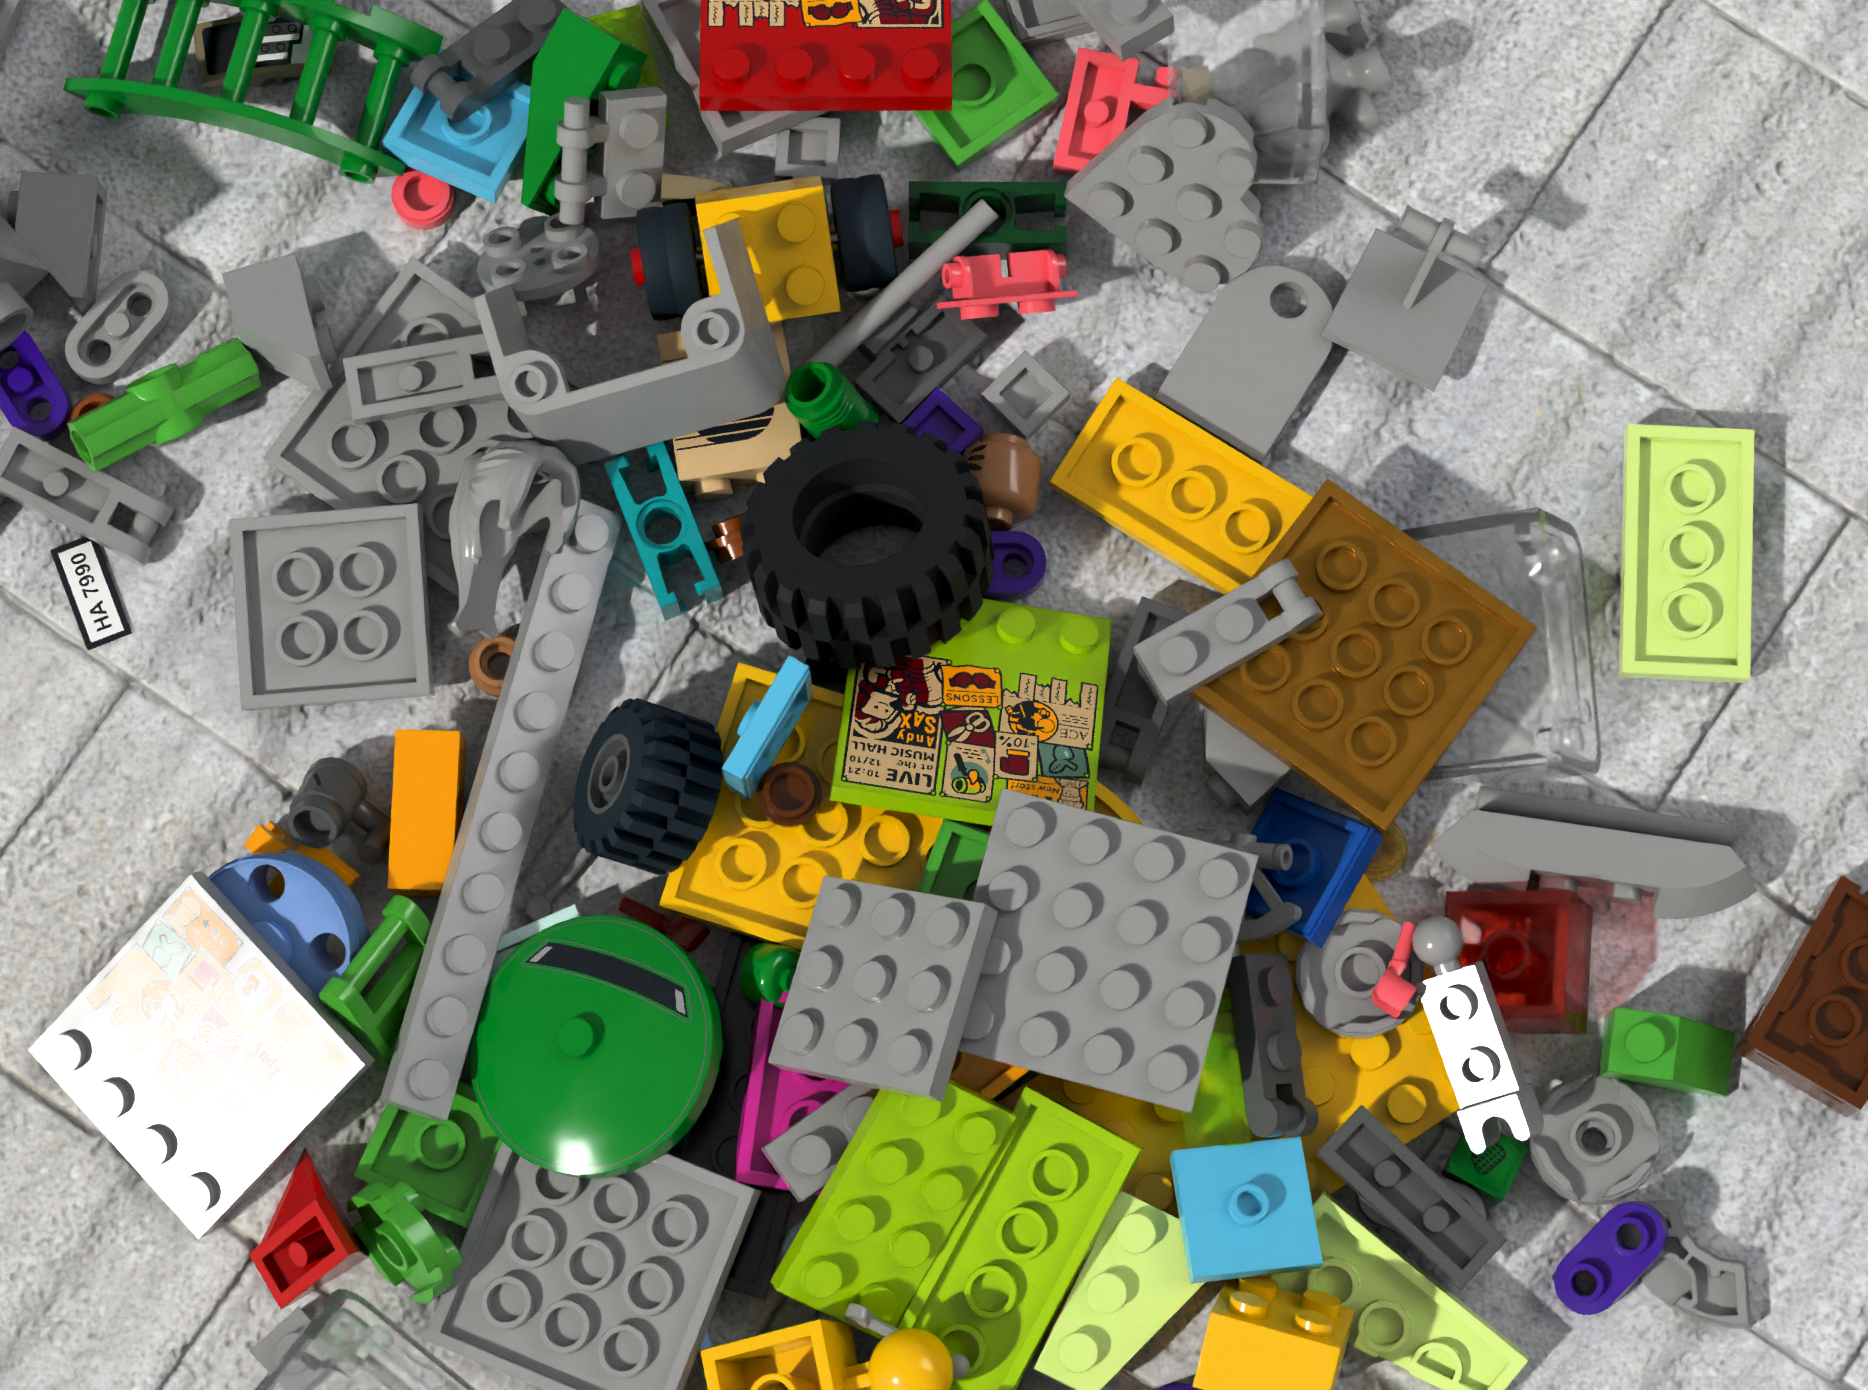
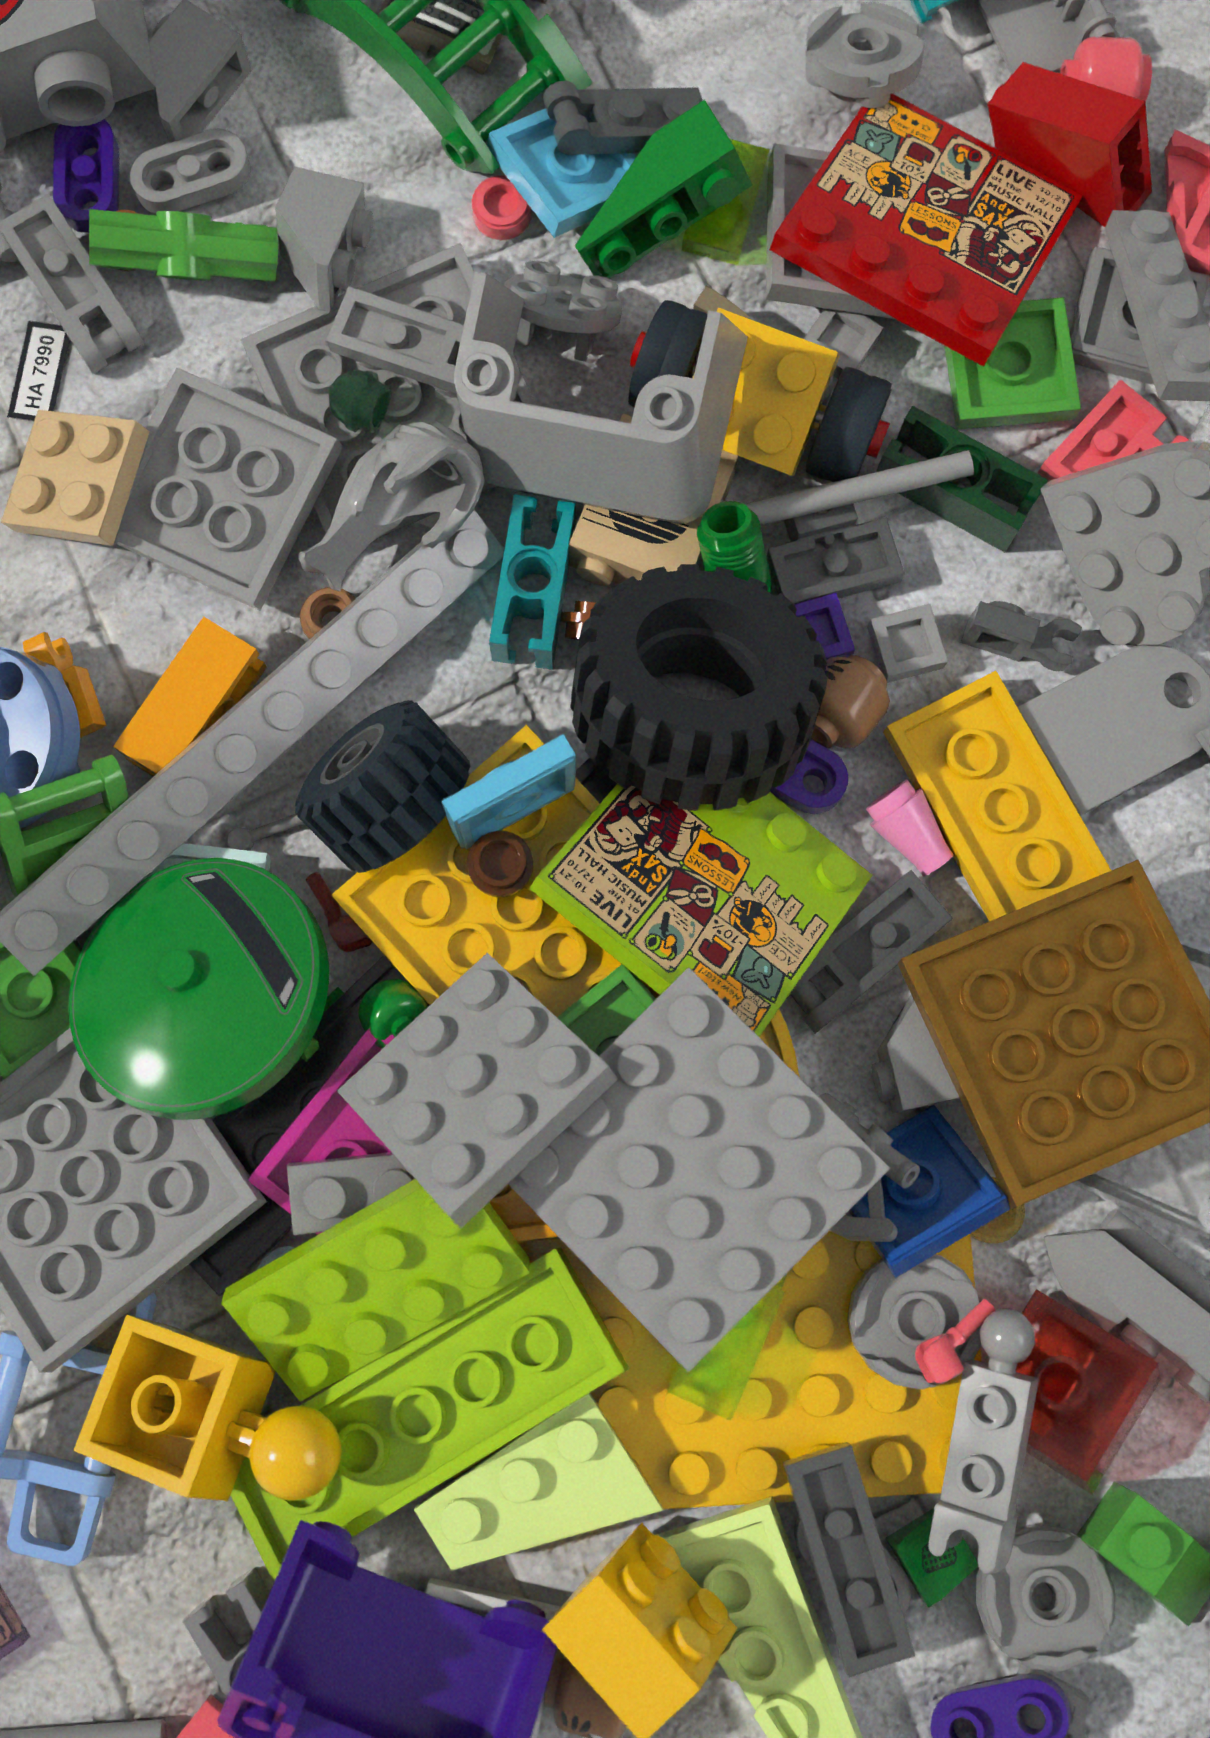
camera: 25 degrees right, 0 degrees up
(195, 670) = (75, 477): none -> tan plate
(330, 799) = (111, 648): dark grey piece -> none
(411, 456) = (359, 400): none -> clear green plate
(627, 154) = (690, 250): light grey plate -> none
(864, 1318) = (348, 1463): light grey hinge -> none
(1030, 282) = (923, 531): coral hinge -> none
(1106, 336) = (1008, 632): none -> dark grey plate
(1120, 558) = (910, 827): none -> bright pink cone
(1225, 633) = (971, 944): light grey plate -> none
(1245, 1210) = (689, 1480): medium azure plate -> none
(1269, 1047) = (795, 1344): dark grey plate -> none

